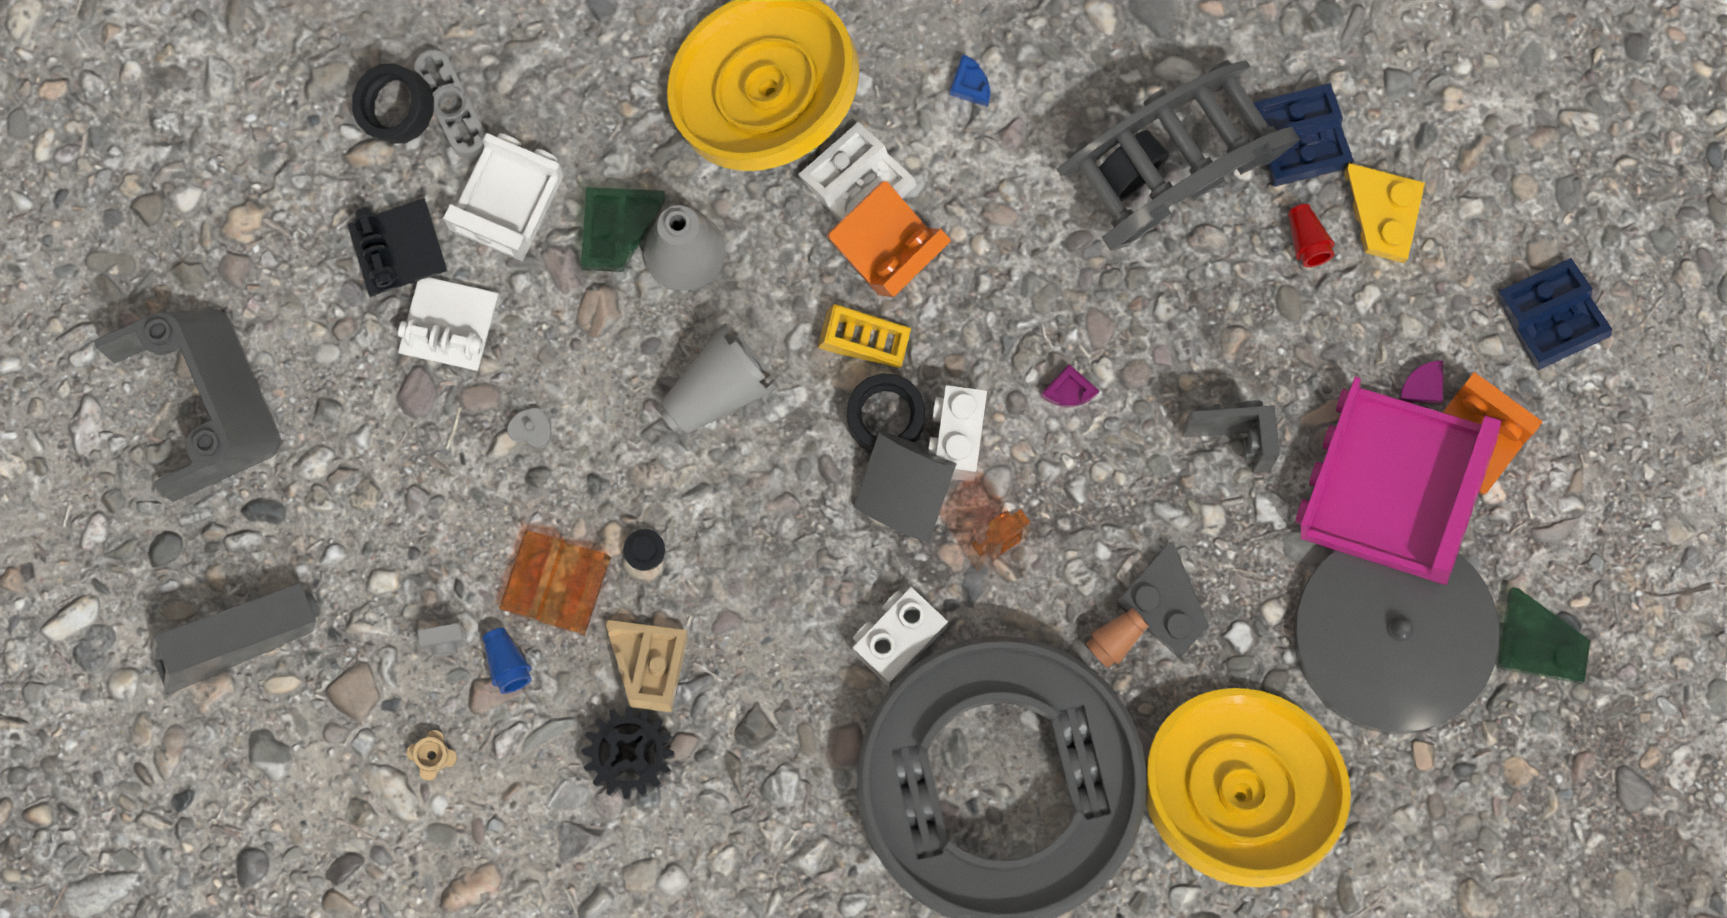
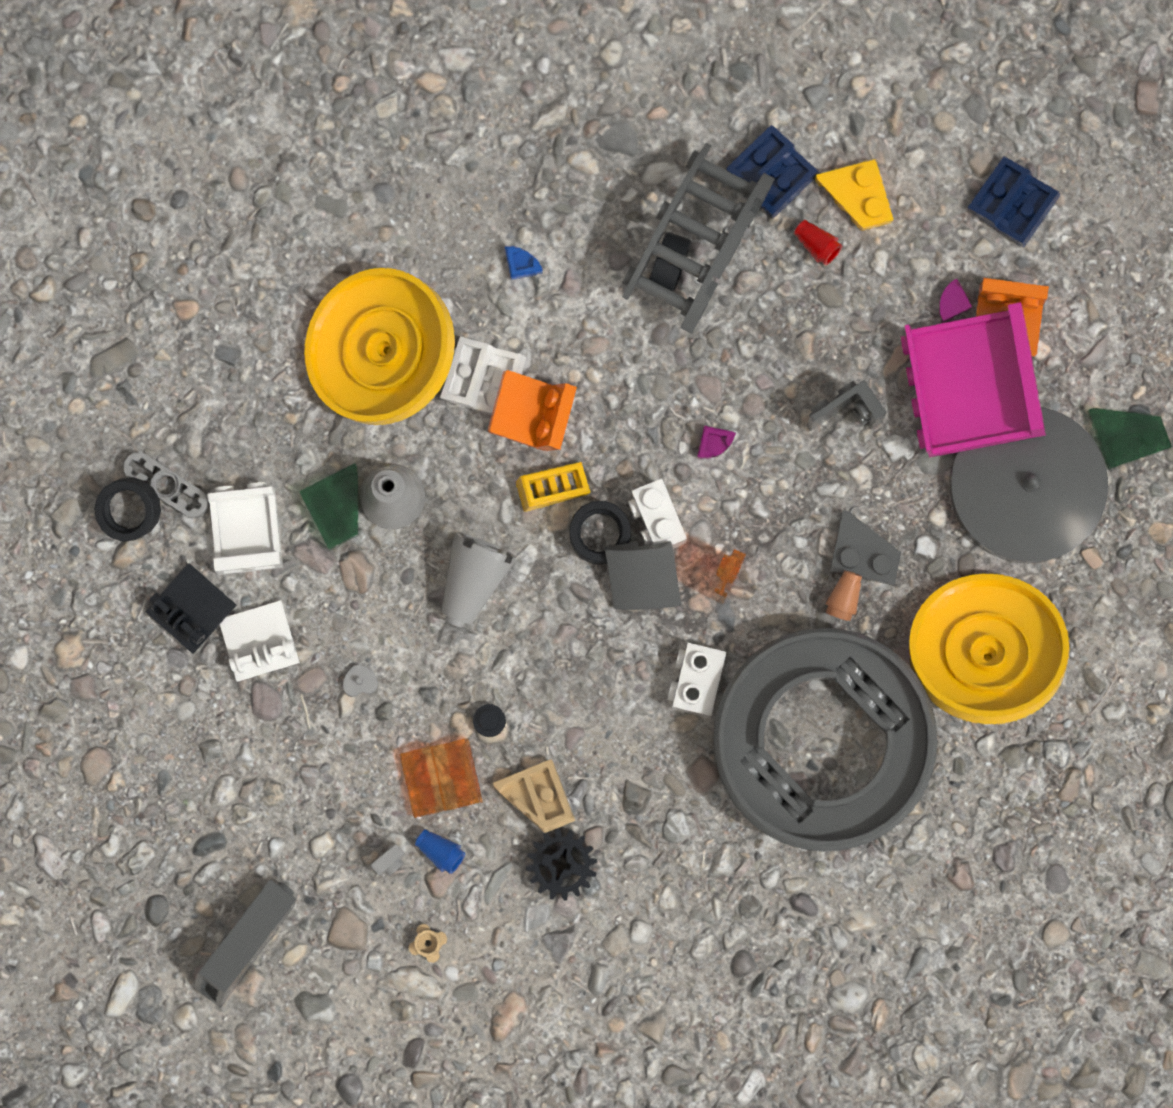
camera: 30 degrees left, 5 degrees up
(240, 421) = (161, 793): dark grey windscreen -> none

